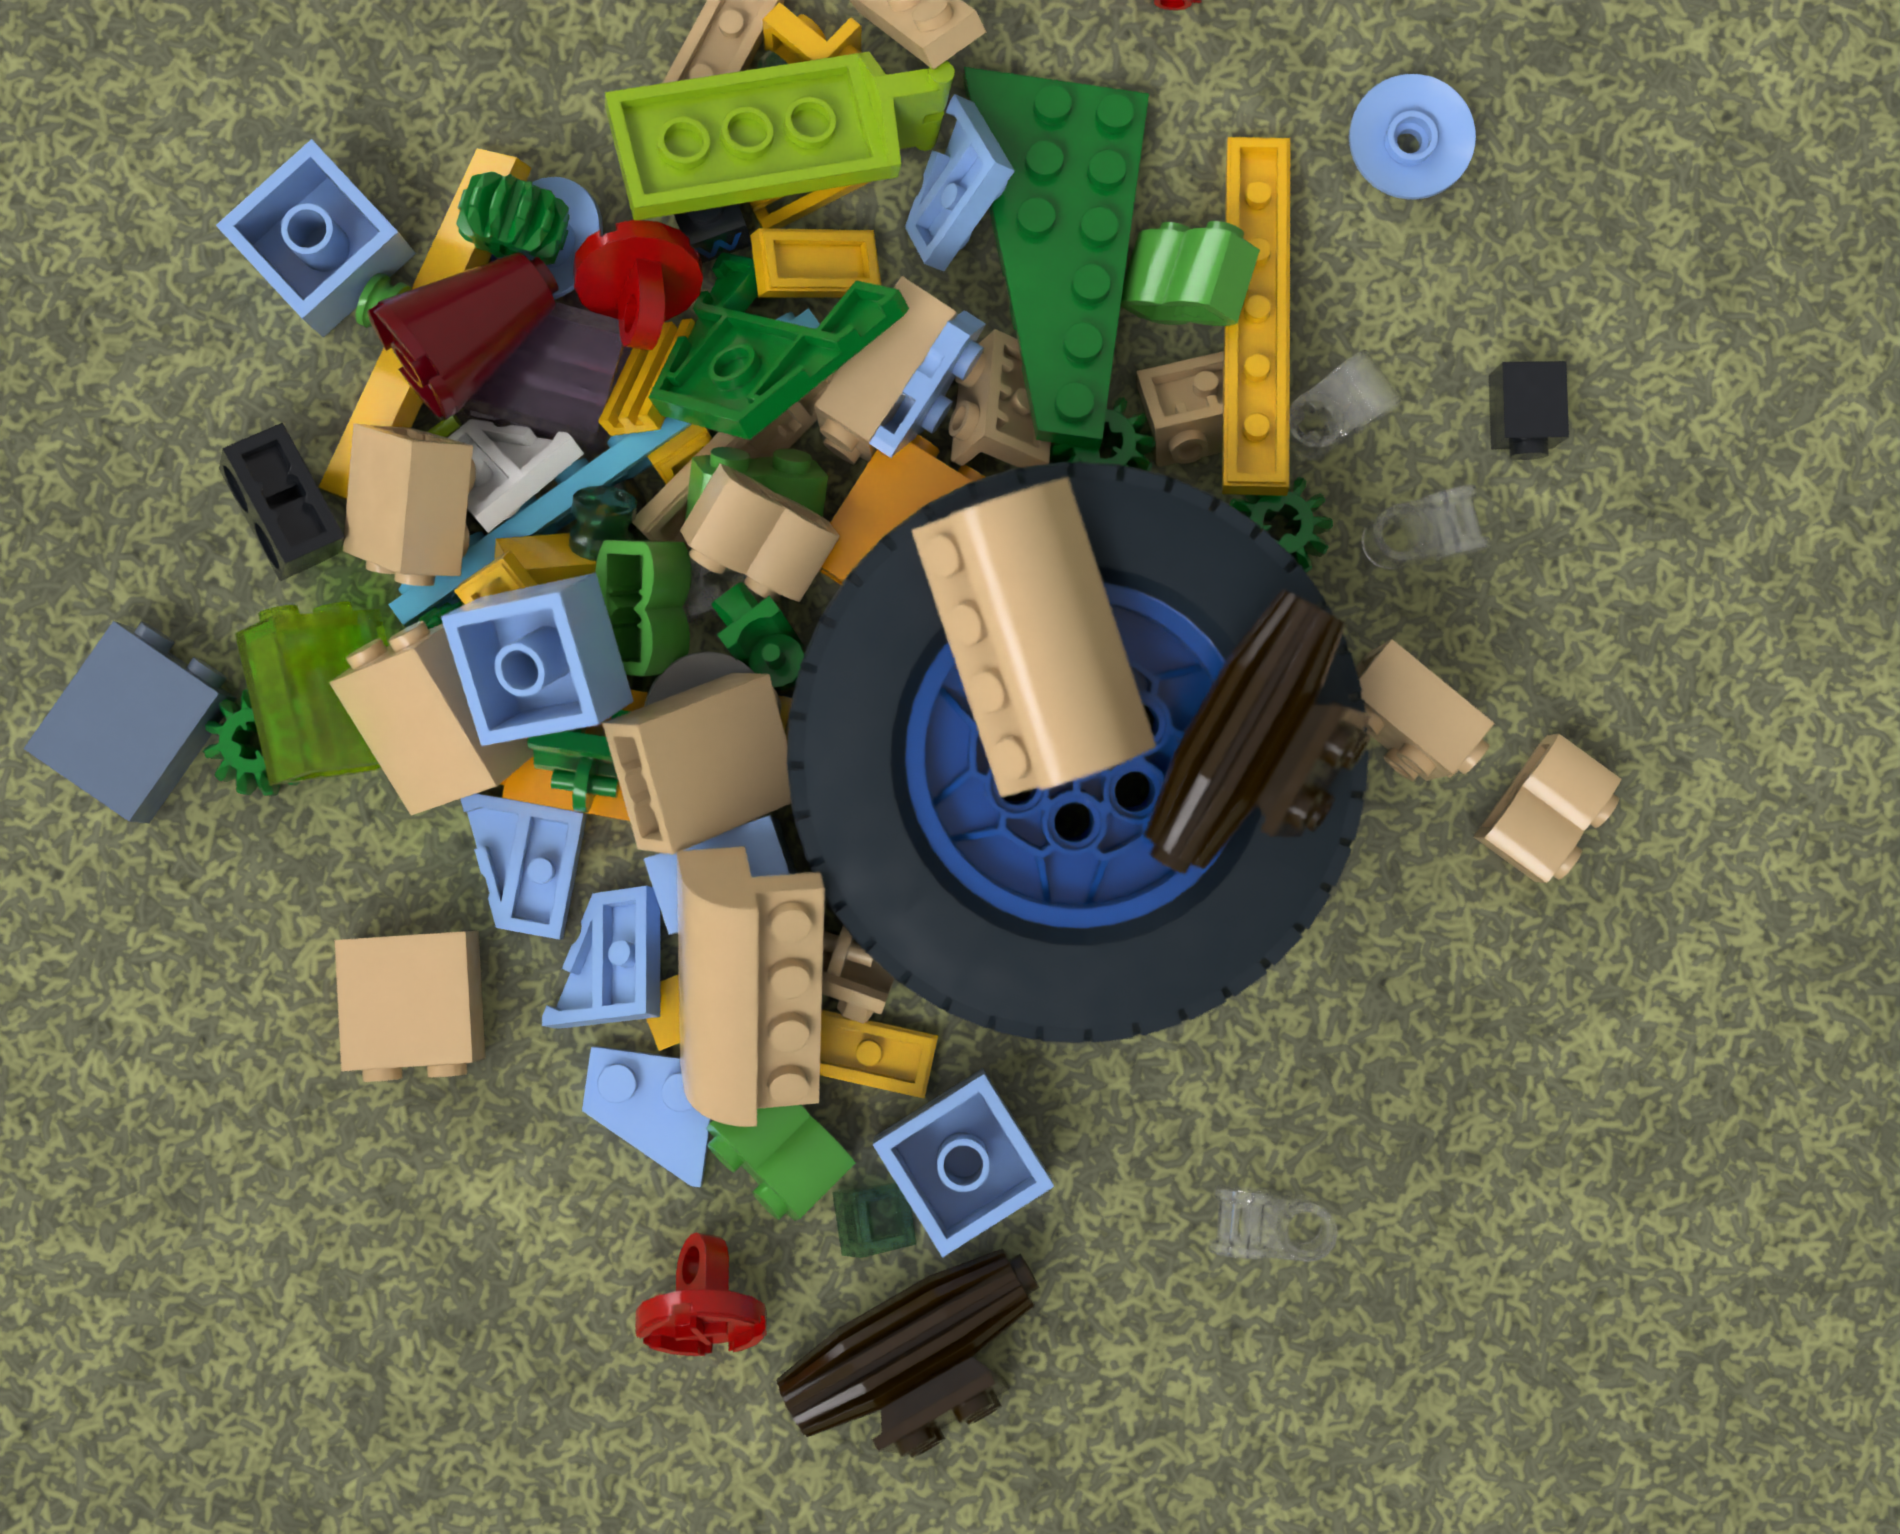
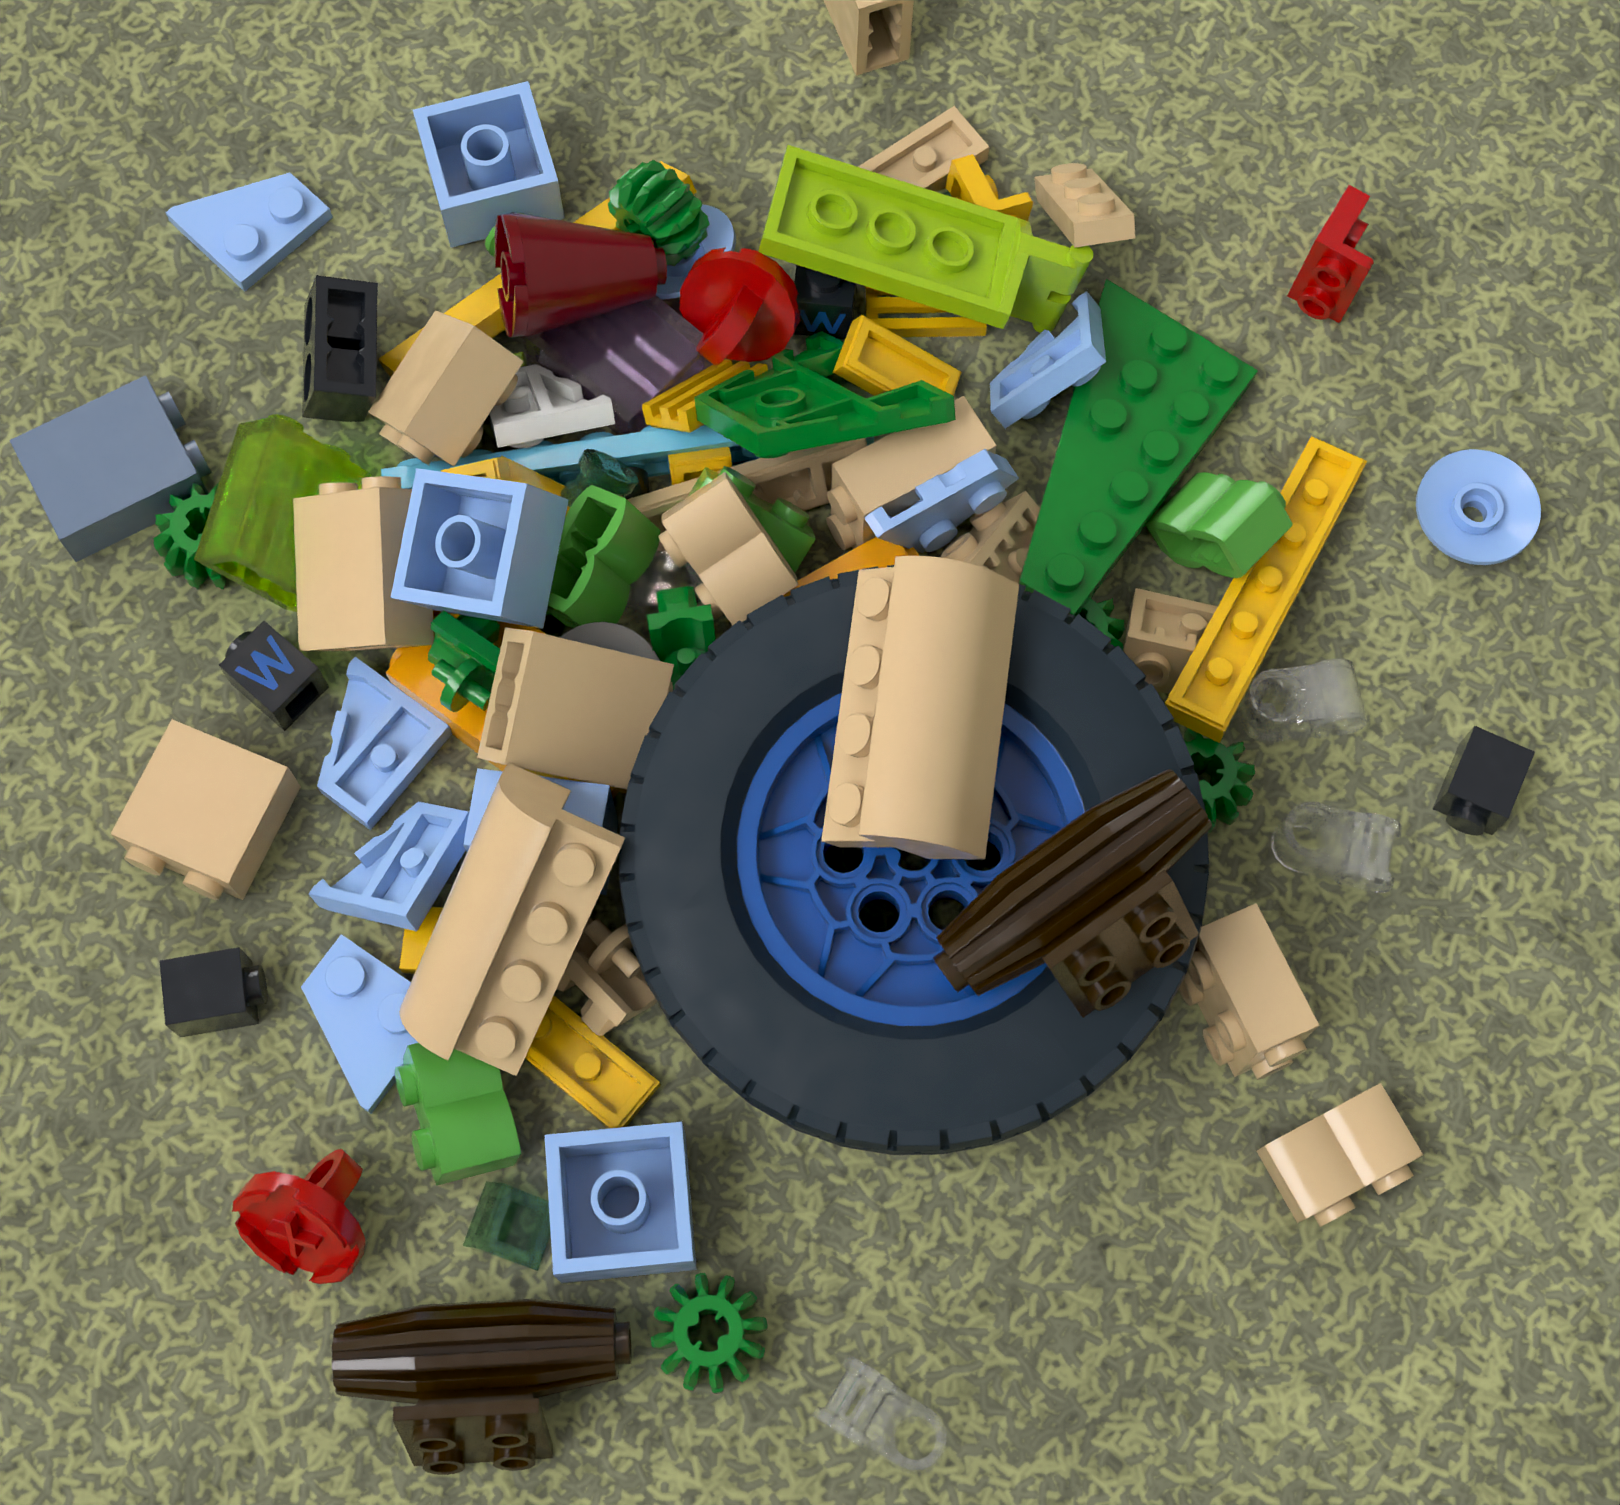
camera: 30 degrees right, 15 degrees down
(119, 409) = (251, 225): none -> light blue wing
(395, 844) = (273, 674): none -> black brick
(508, 1155) = (211, 992): none -> black brick
(1068, 1227) = (729, 1345): none -> green gear

